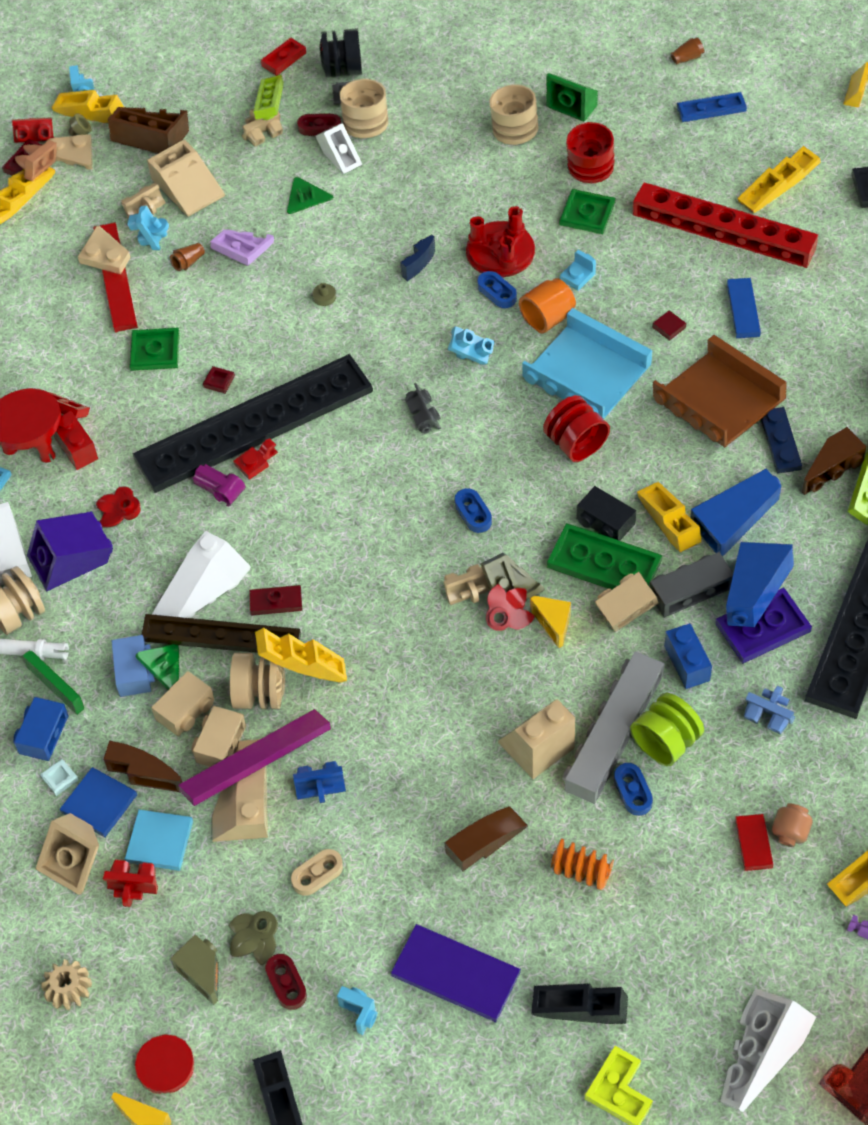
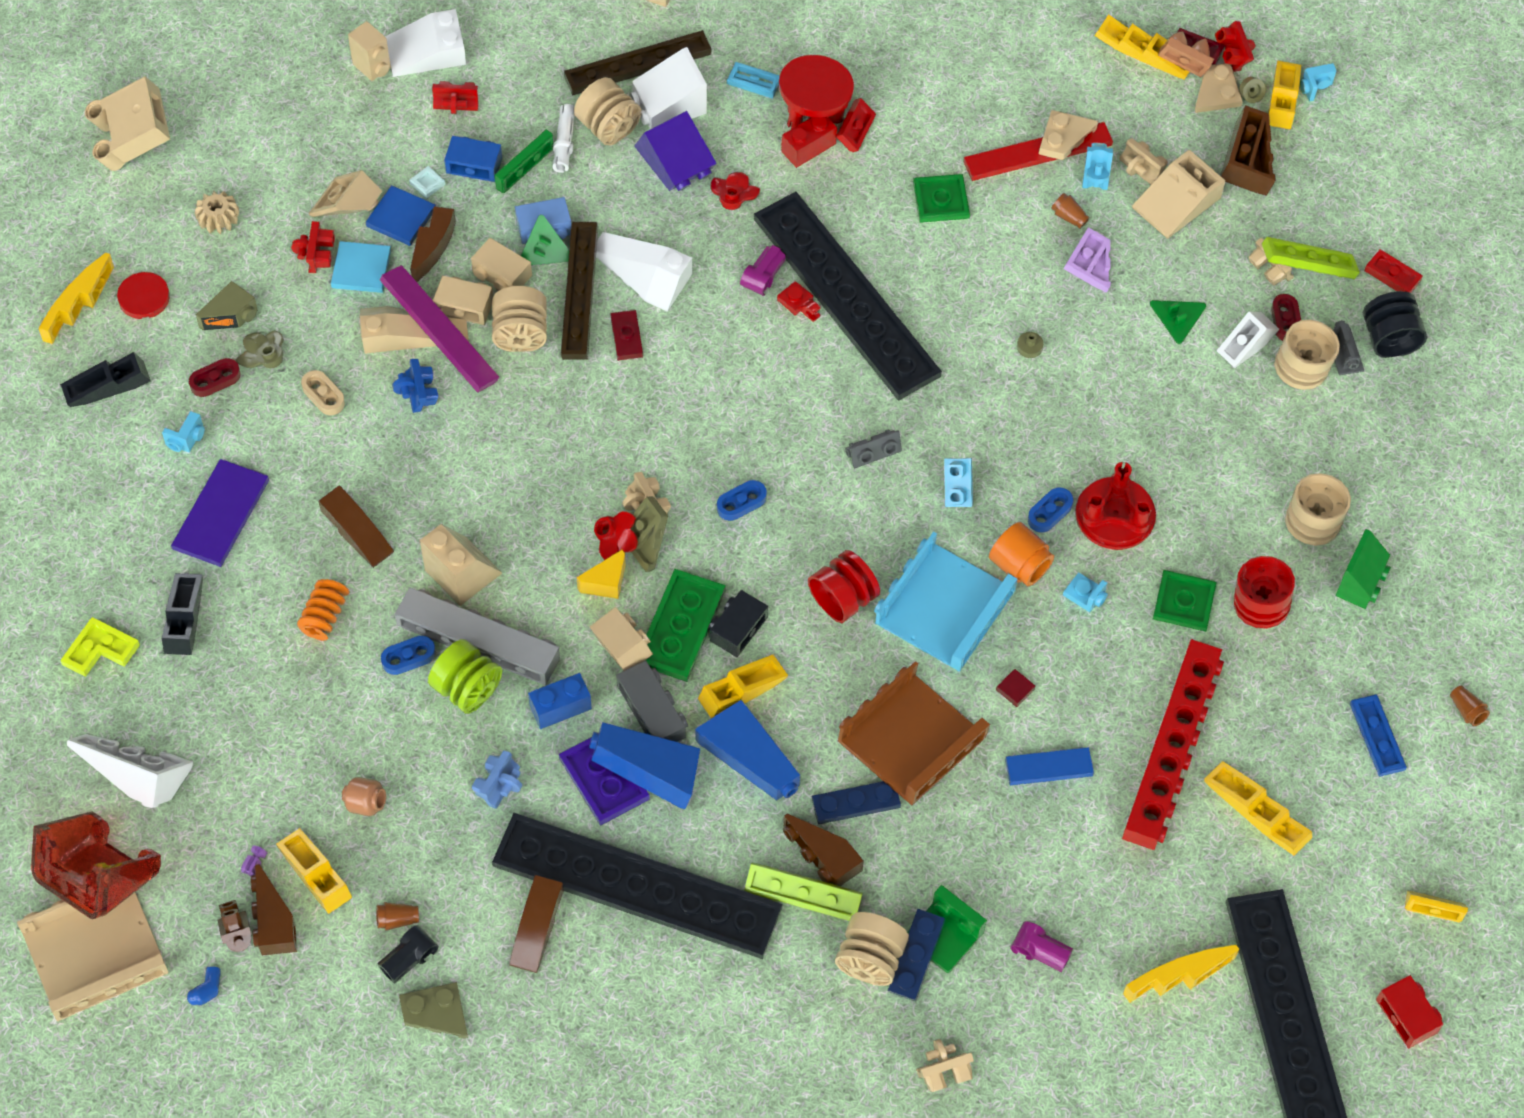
camera: 80 degrees right, 5 degrees up
(218, 379) = (903, 259): dark red tile -> none
(304, 658) = (539, 348): yellow slope -> none
(417, 262) = (1095, 432): dark blue slope -> none
(754, 842) = (349, 765): red tile -> none

